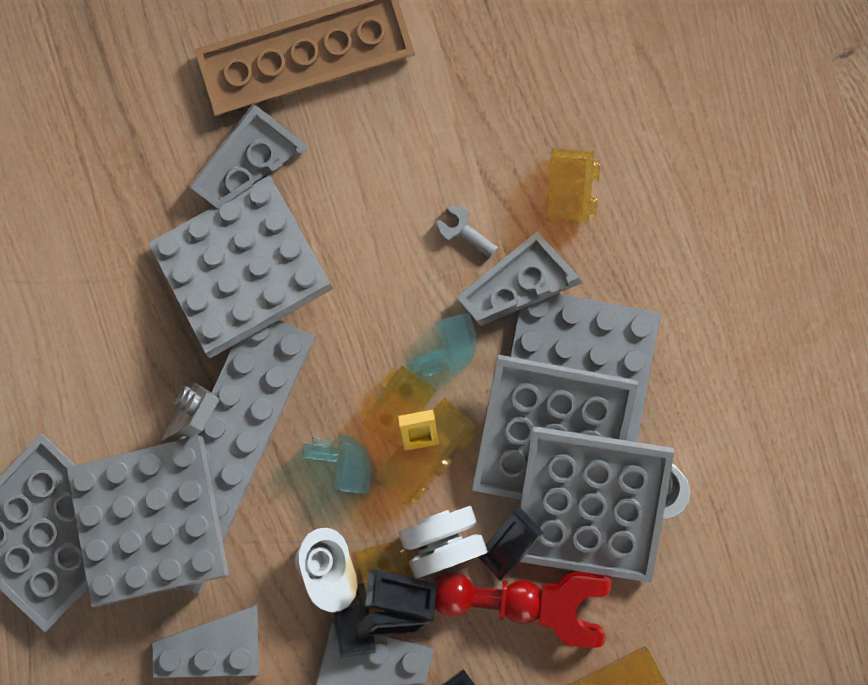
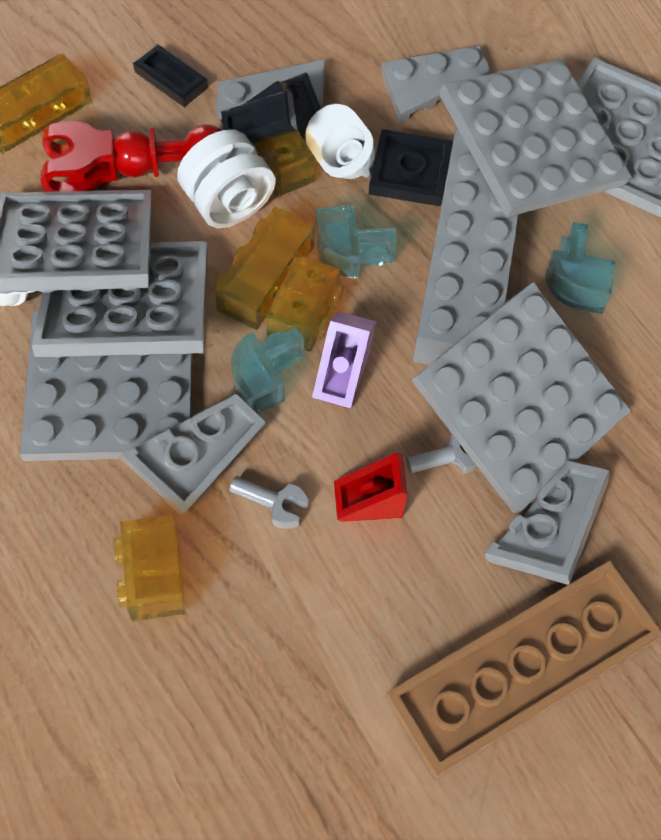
camera: 160 degrees right, 25 degrees down
(153, 382) = (577, 278): none -> clear light blue brick
(192, 414) = (524, 237): light grey wing -> none
(265, 538) = (410, 167): none -> black plate
(324, 238) = (439, 457): none -> light grey bar
(376, 343) = (344, 359): none -> lavender slope
(386, 215) = (373, 491): none -> red slope
(418, 430) = (277, 263): yellow plate -> none
(510, 544) = (154, 195): black tile -> none

